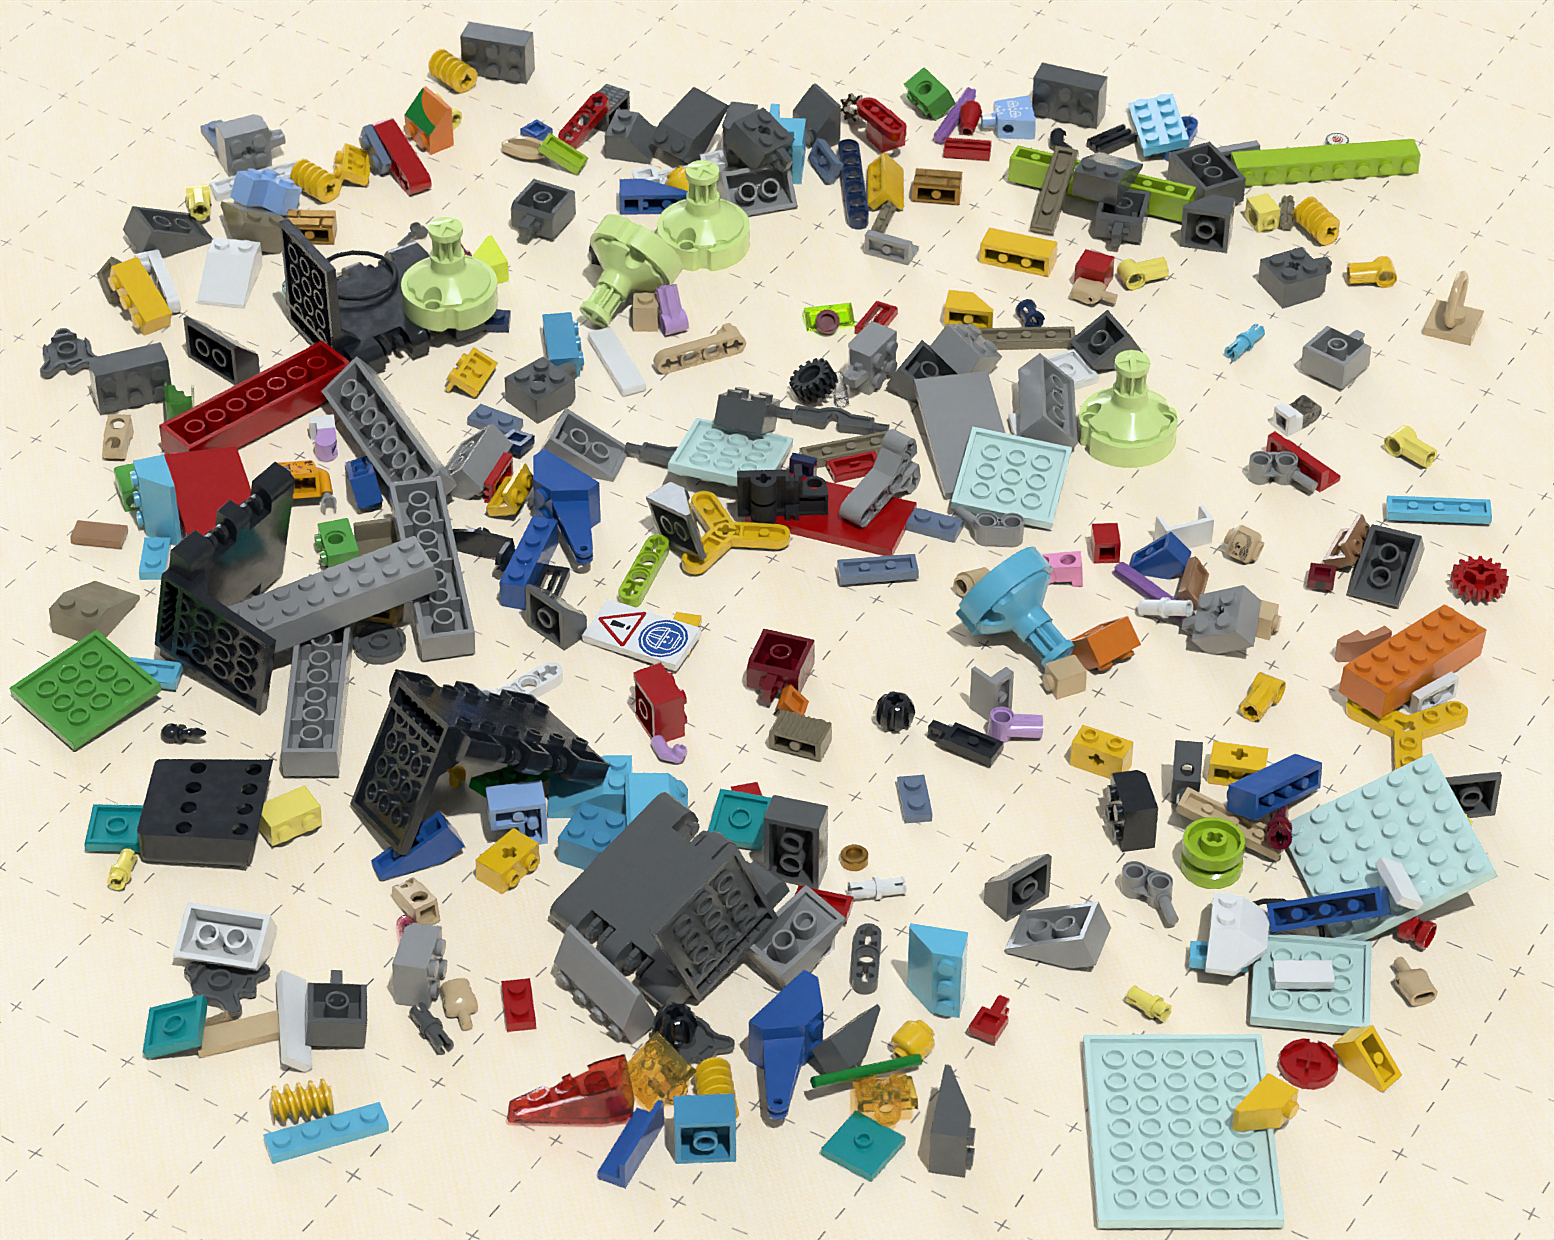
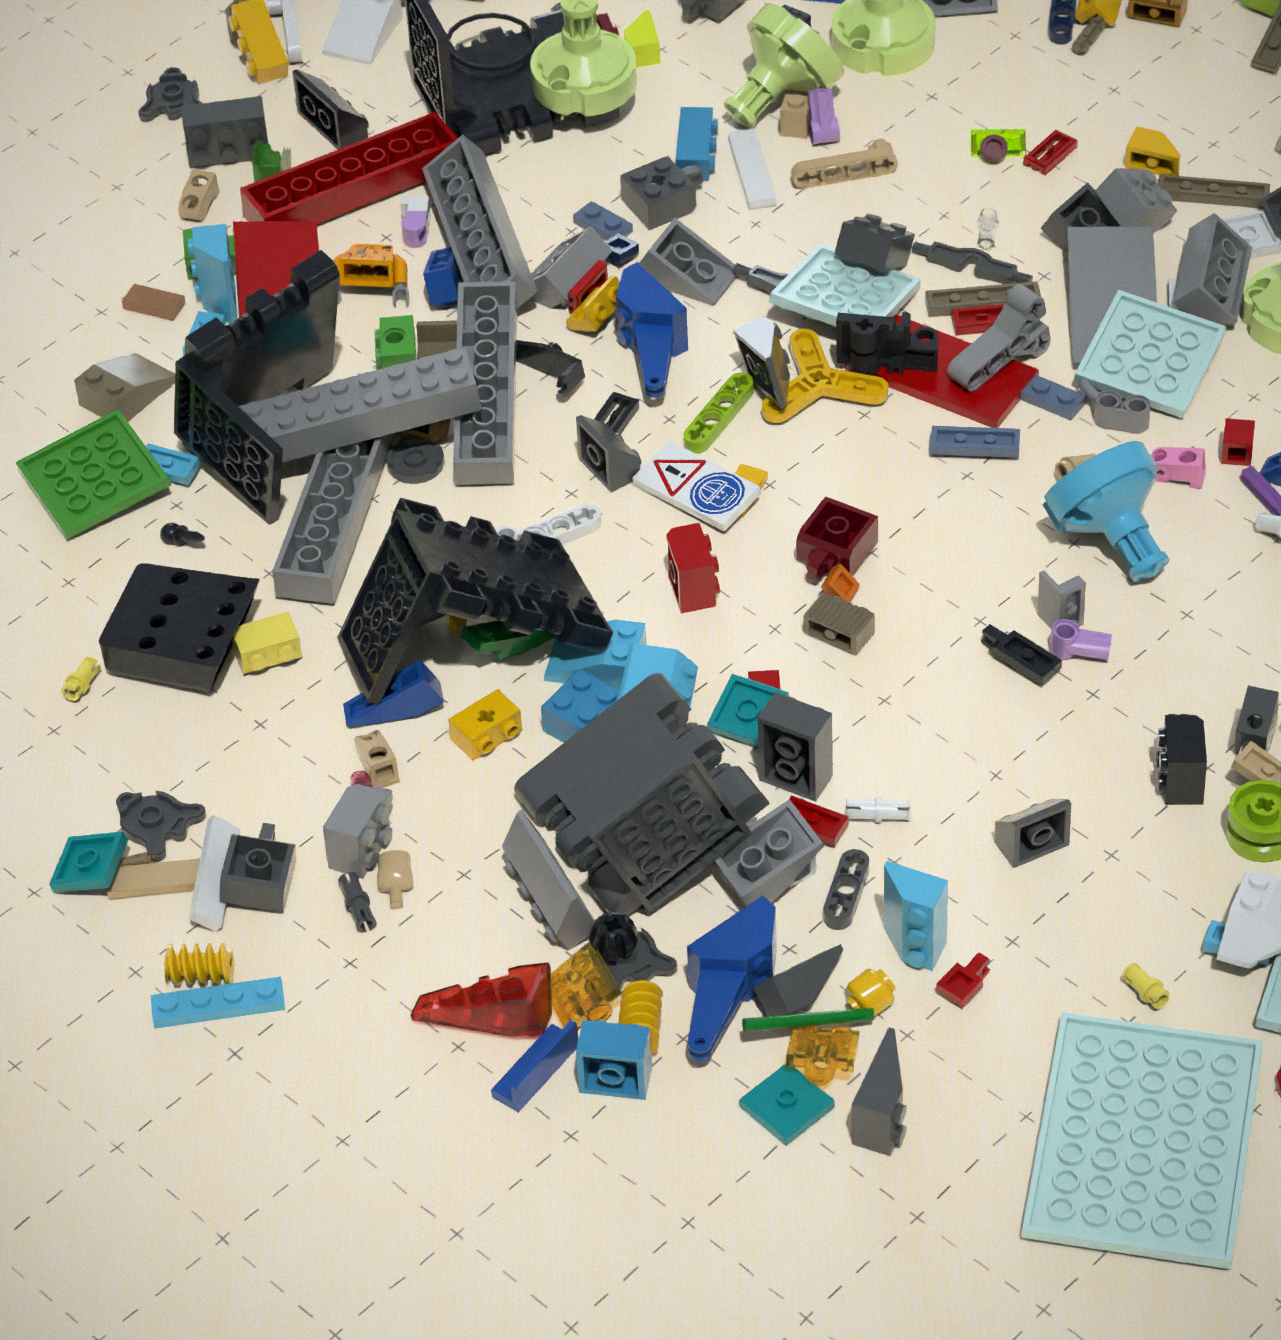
camera: 15 degrees right, 5 degrees up
(113, 828) = (80, 631): teal plate -> none
(225, 936) = (164, 770): white slope -> none
(472, 372) = (591, 164): yellow bracket -> none
(499, 322) = (636, 109): dark blue plate -> none
(518, 1005) = (457, 888): red plate -> none
(519, 807) = (509, 667): light blue brick -> none
(528, 561) = (603, 375): blue brick -> none
(664, 752) = (692, 625): lavender arm -> none
(808, 463) = (923, 312): dark blue plate -> none
(813, 380) = (959, 215): black tyre -> none
(854, 857) = (863, 771): pearl gold tile -> none
(871, 358) = (1027, 197): light grey hinge -> none
(889, 247) = (1086, 69): light grey panel -> none
(895, 711) = (950, 608): black piece -> none
(914, 799) = (947, 712): sand blue plate -> none
(1018, 252) = (1229, 90): yellow brick -> none
(1032, 312) = (1226, 157): dark blue bush -> none
(1061, 935) = (1068, 893): light grey slope -> none
(1065, 677) = (1150, 593): tan brick -> none
(1100, 752) = (1167, 686): yellow brick -> none
(1105, 643) = (1205, 559): orange slope -> none
(1157, 886) = (1178, 843): light grey beam -> none
(1266, 1105) = (1242, 1126): yellow slope -> none

